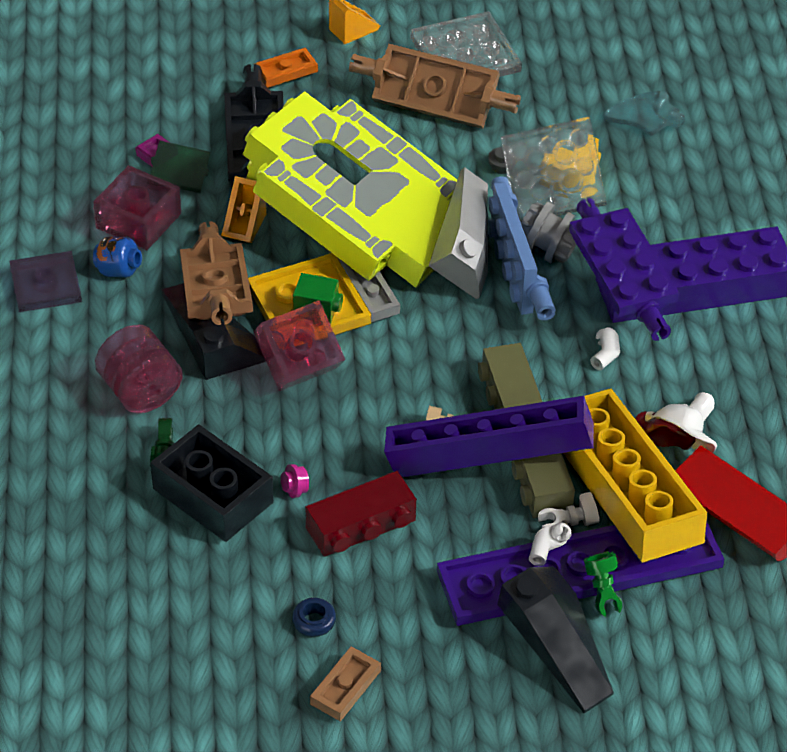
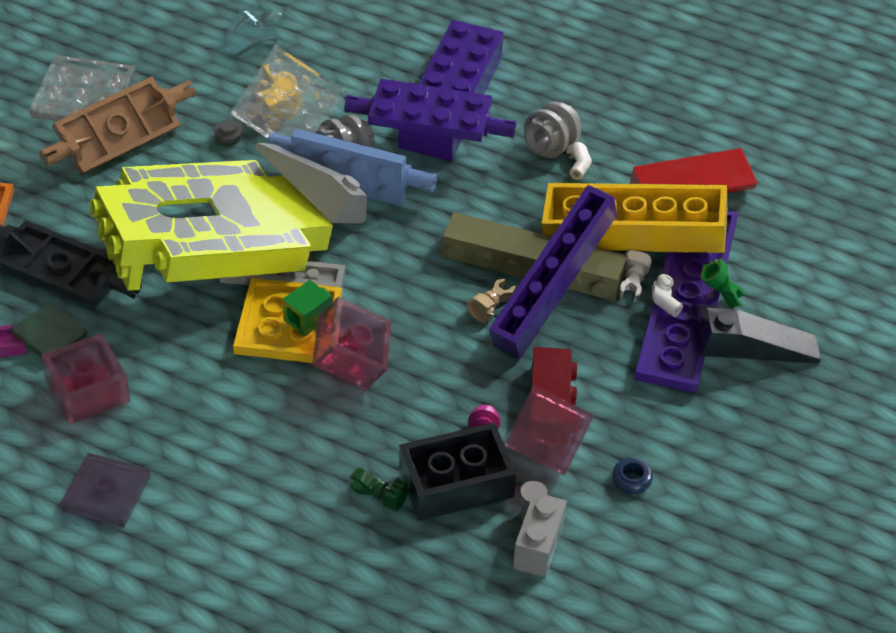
camera: 60 degrees left, 0 degrees up
(117, 256) = (128, 421): blue head -> none
(138, 368) = (292, 461): clear pink wheel -> none
(191, 570) = (541, 529): none -> light grey hinge
(214, 347) = (271, 402): black wedge -> none
(215, 278) = (224, 363): medium nougat plate -> none
(244, 211) = (149, 310): light orange slope -> none
(296, 518) = (548, 429): none -> clear pink brick
(345, 683) = (716, 485): medium nougat plate -> none
(610, 348) = (485, 174): white arm -> none
(676, 426) = (605, 168): hair -> none
(703, 367) = (552, 129): none -> light grey piece

